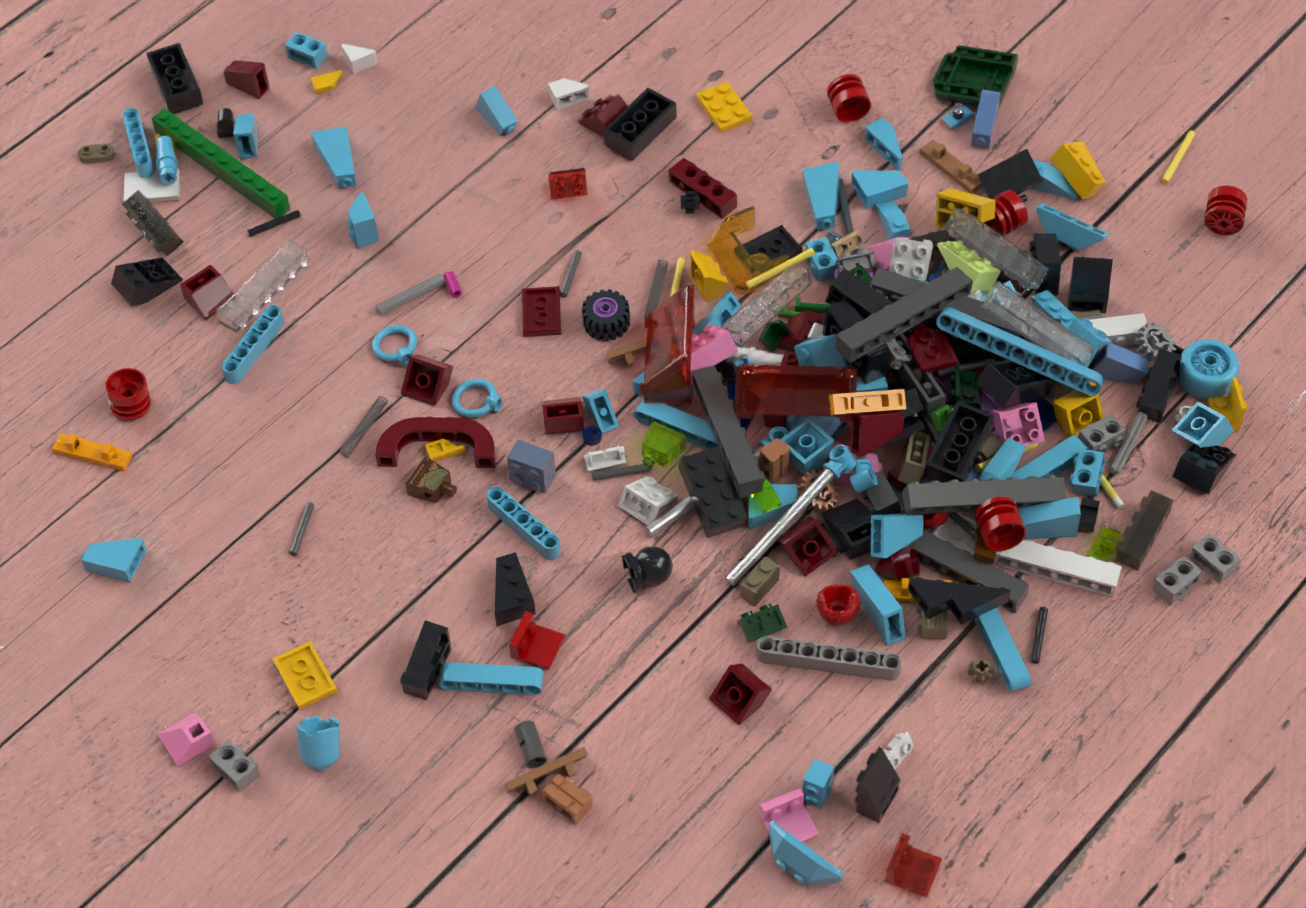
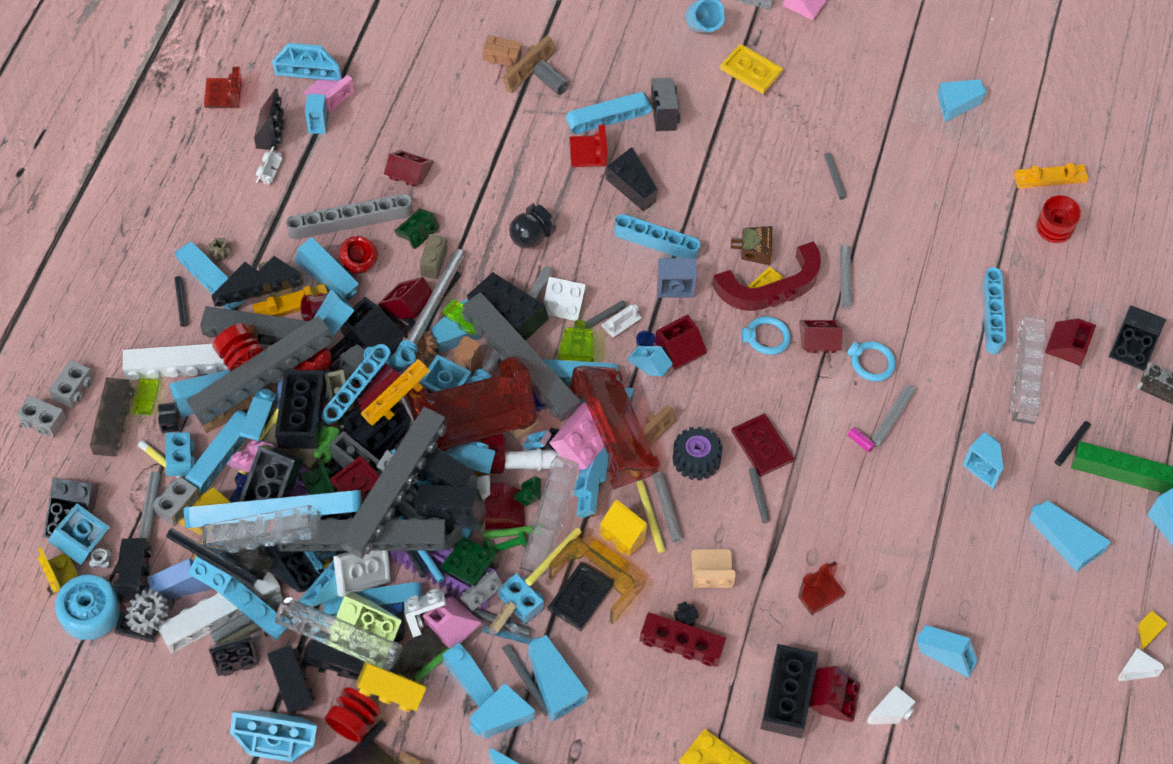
camera: 150 degrees right, 5 degrees up
(648, 226) = (712, 568): none -> light nougat bracket
(898, 442) = (360, 376): none -> medium azure beam
(1087, 334) = (211, 557): none -> black axle

